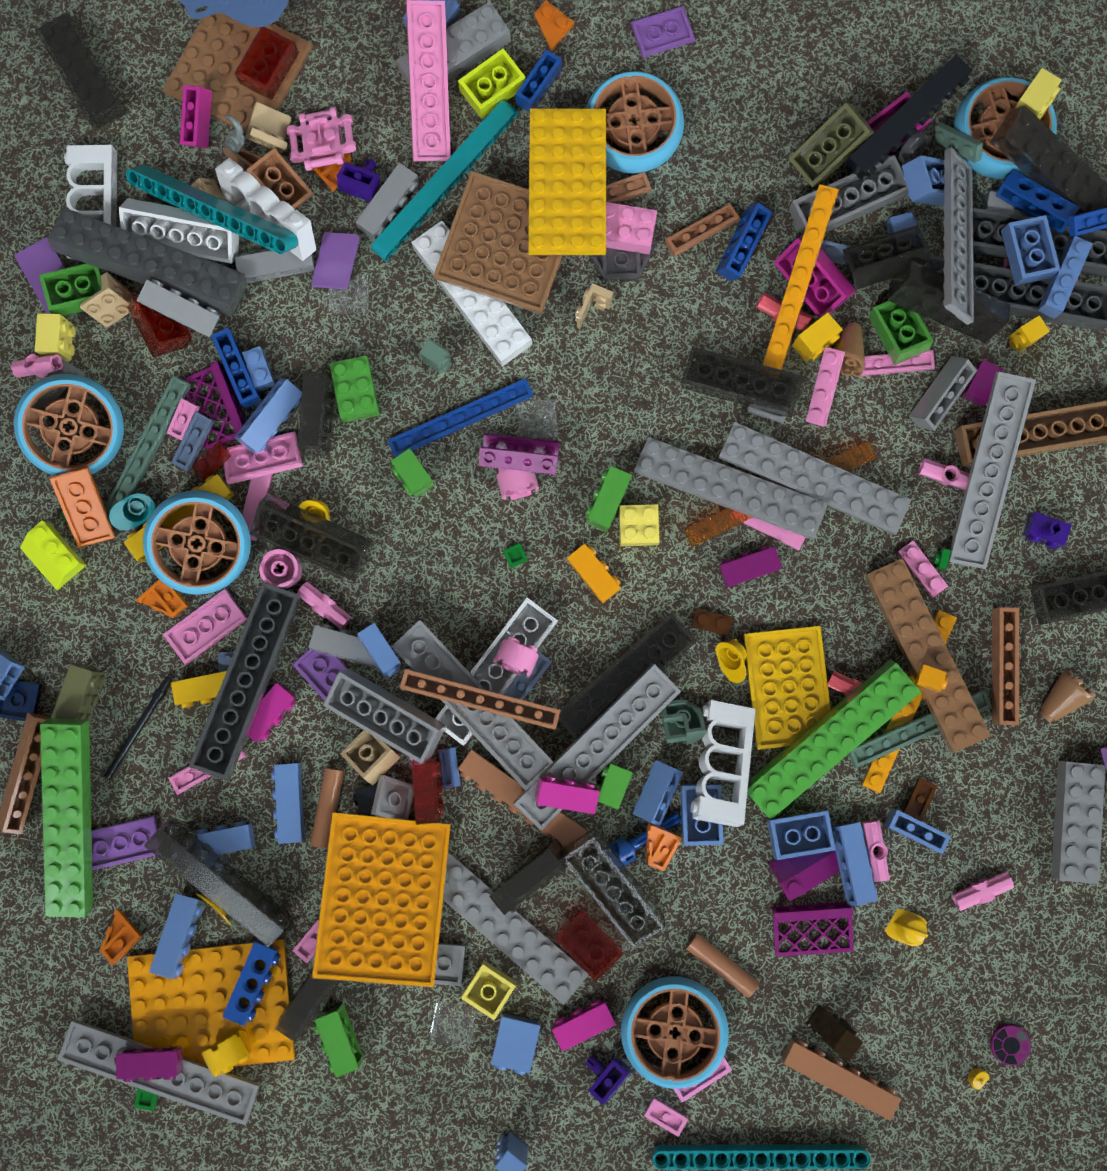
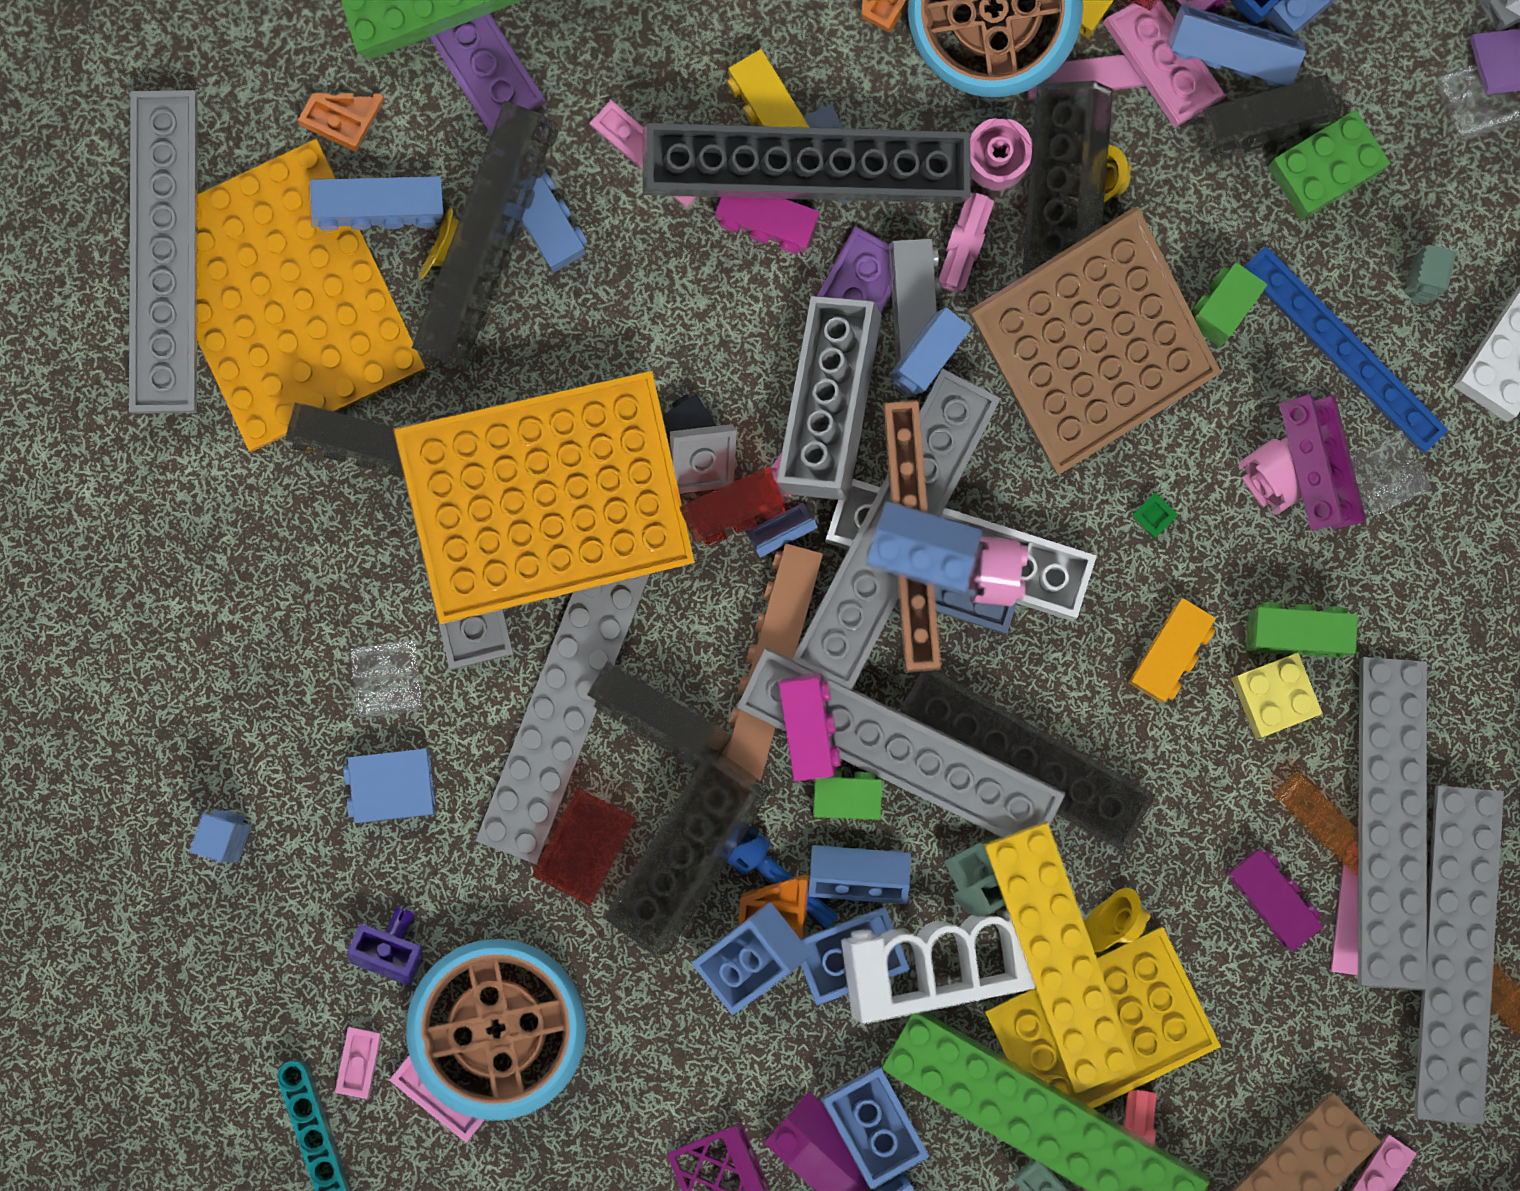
camera: 70 degrees right, 0 degrees up
(145, 1100) = (114, 247): green plate -> none
(149, 1063) = (173, 231): magenta brick -> none
(158, 695) = (732, 37): black bar -> none
(205, 626) = (865, 70): bright pink tile -> none
(225, 1054) = (226, 342): yellow brick -> none
(235, 1009) = (298, 330): blue brick -> none
(288, 803) = (639, 299): medium blue brick -> none
(306, 947) = (428, 407): bright pink plate -> none
(326, 806) = (661, 359): nougat brick -> none
(338, 1040) = (304, 507): bright green brick -> none
(370, 756) = (757, 399): tan brick -> none
(406, 554) = (1095, 340): none -> medium nougat plate
(488, 990) = (459, 714): light yellow brick -> none
(489, 696) = (924, 548): none -> medium blue slope
(583, 1024) = (456, 881): dark pink brick -> none
(684, 872) = (751, 958): none -> medium blue brick
(712, 622) = (1162, 869): reddish brown plate -> none
(722, 965) = (623, 1072): nougat brick -> none
(742, 698) = (1060, 957): none -> yellow plate

